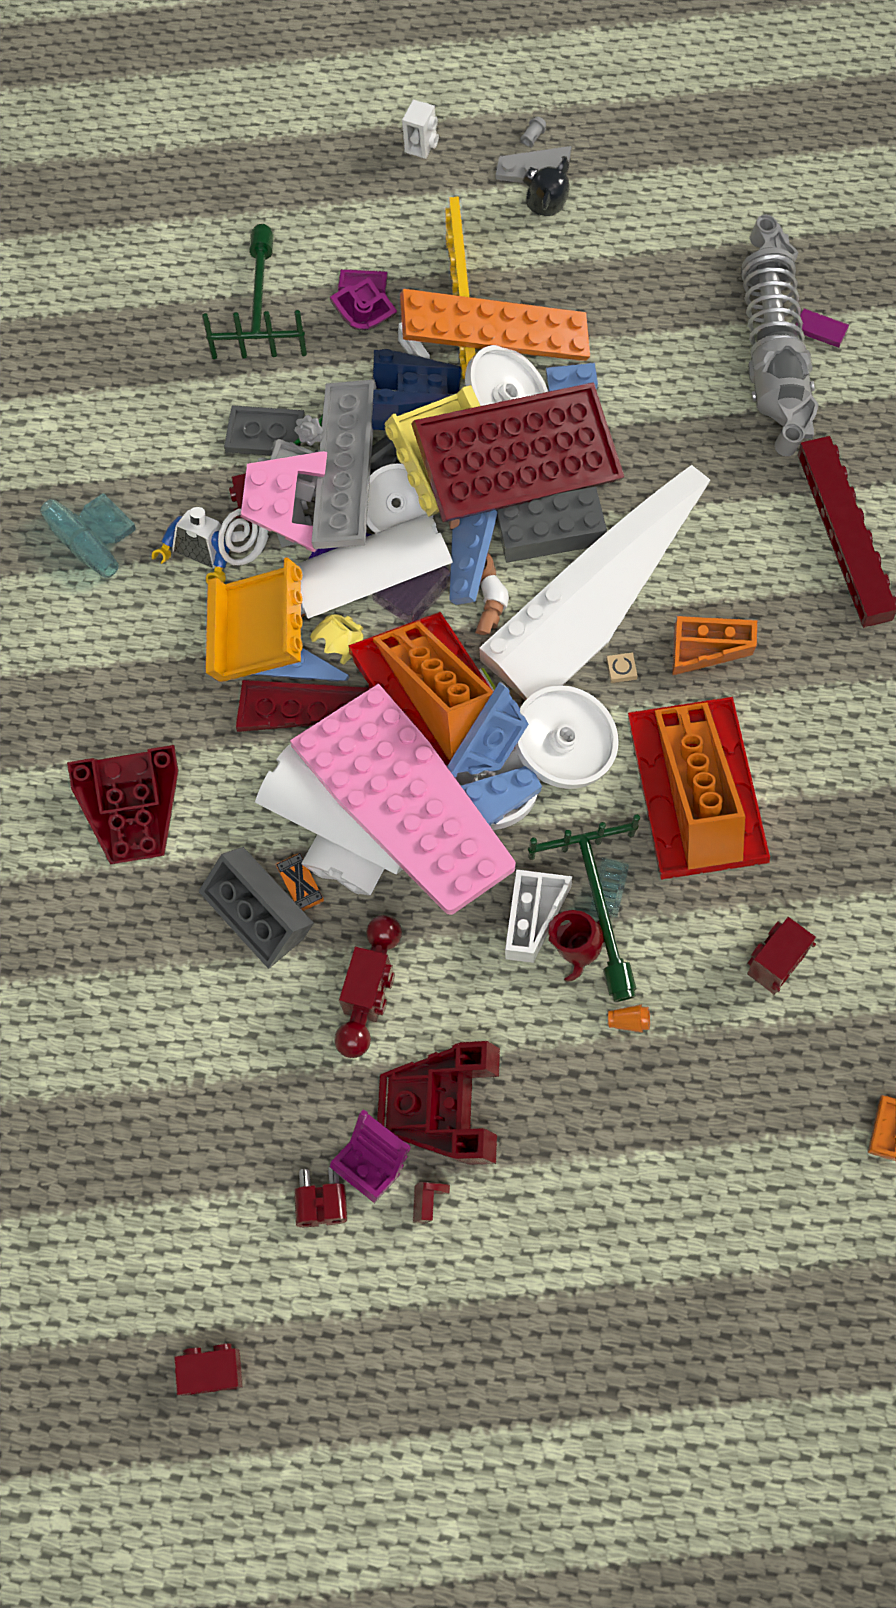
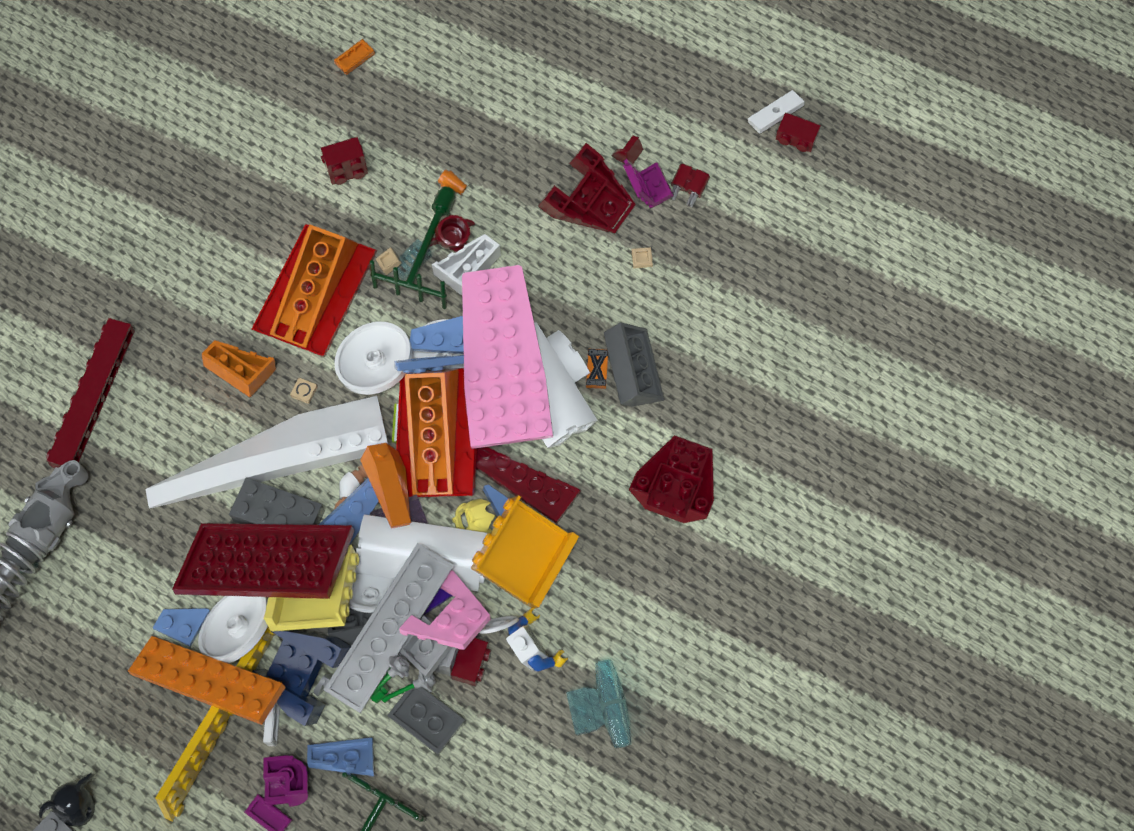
camera: 155 degrees left, 0 degrees up
(247, 1408) = (775, 111): none -> white tile
(321, 356) = (343, 756): none -> medium blue wing
(325, 1058) = (642, 257): none -> tan tile
(366, 986) = (593, 274): dark red brick -> none
(447, 606) = (389, 482): none -> orange wedge
(635, 868) = (388, 260): none -> tan tile

